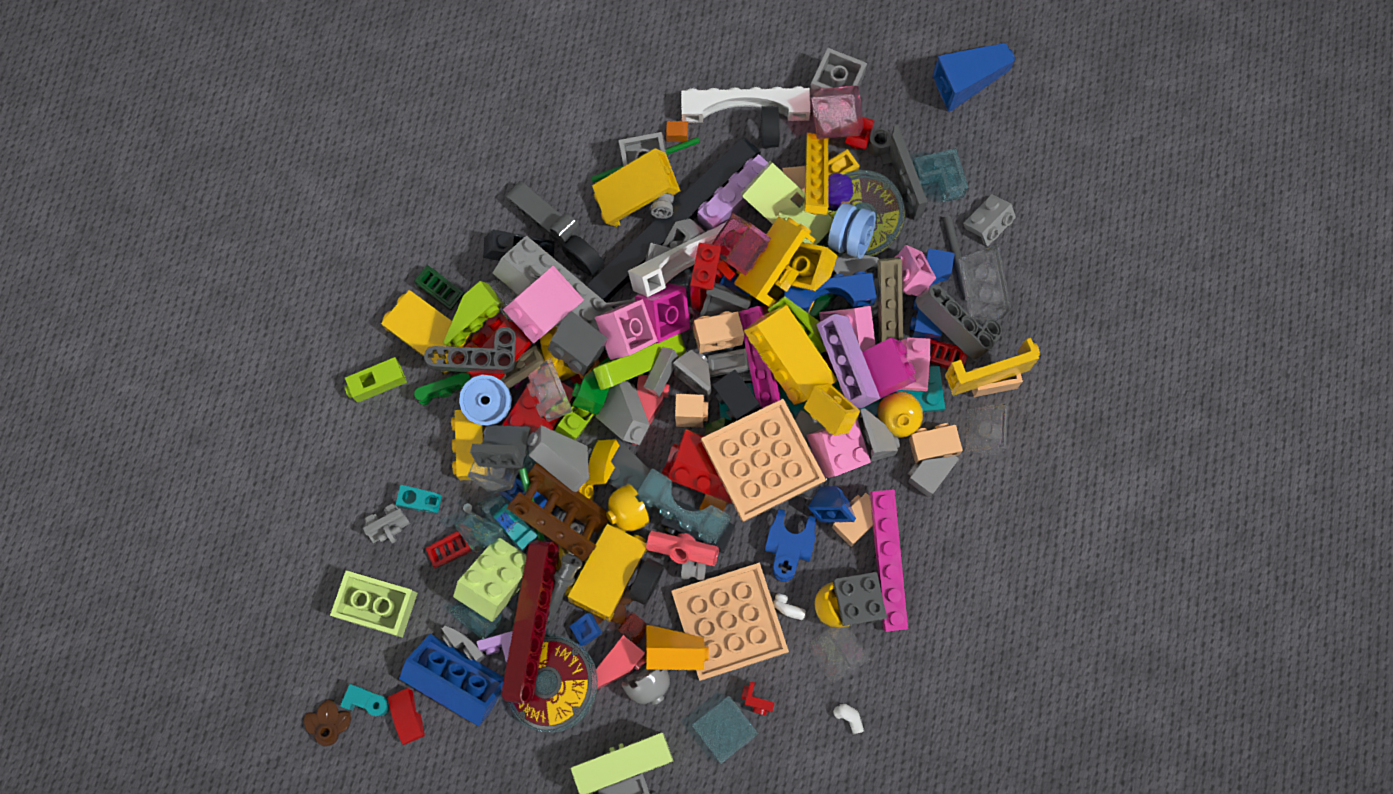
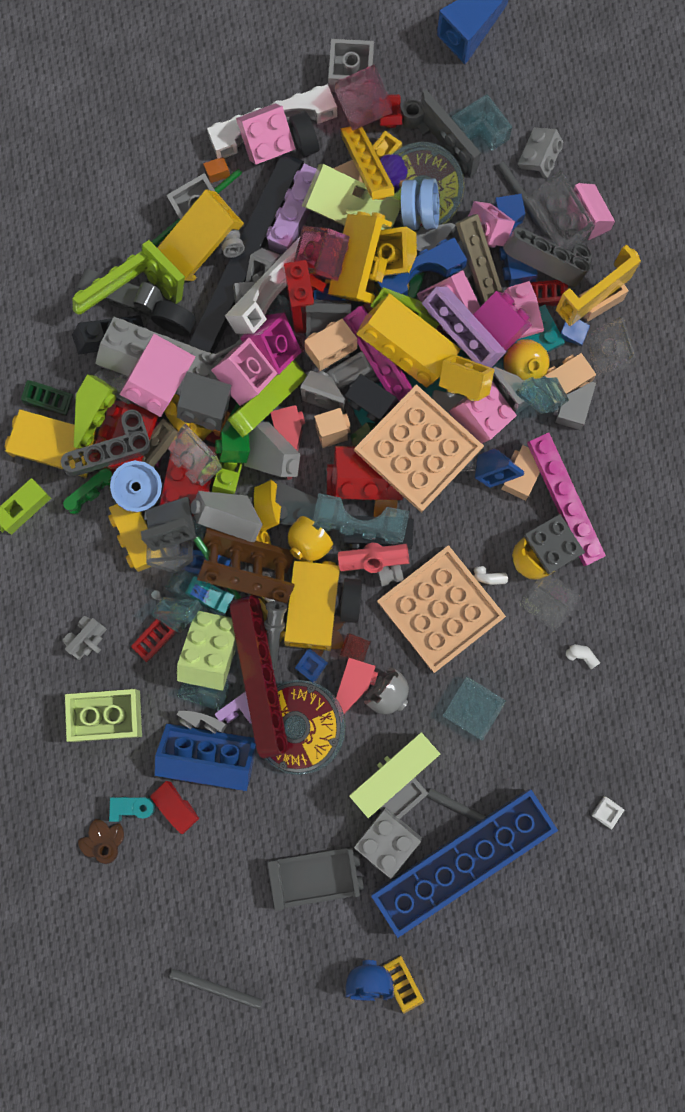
camera: 20 degrees left, 5 degrees up
(418, 500) = (107, 604): teal leg -> none
(580, 194) = (151, 262): none -> lime bracket
(661, 371) = (291, 400): light grey slope -> none
(674, 650) = (401, 653): light orange slope -> none
(733, 114) = (265, 133): none -> bright pink brick
(759, 705) = (498, 675): red bracket -> none
(789, 546) = (470, 520): blue piece -> none
(902, 451) = (543, 394): none -> clear light blue slope
(959, 403) = (576, 333): none -> slope
(1019, 291) = (595, 208): none -> bright pink slope

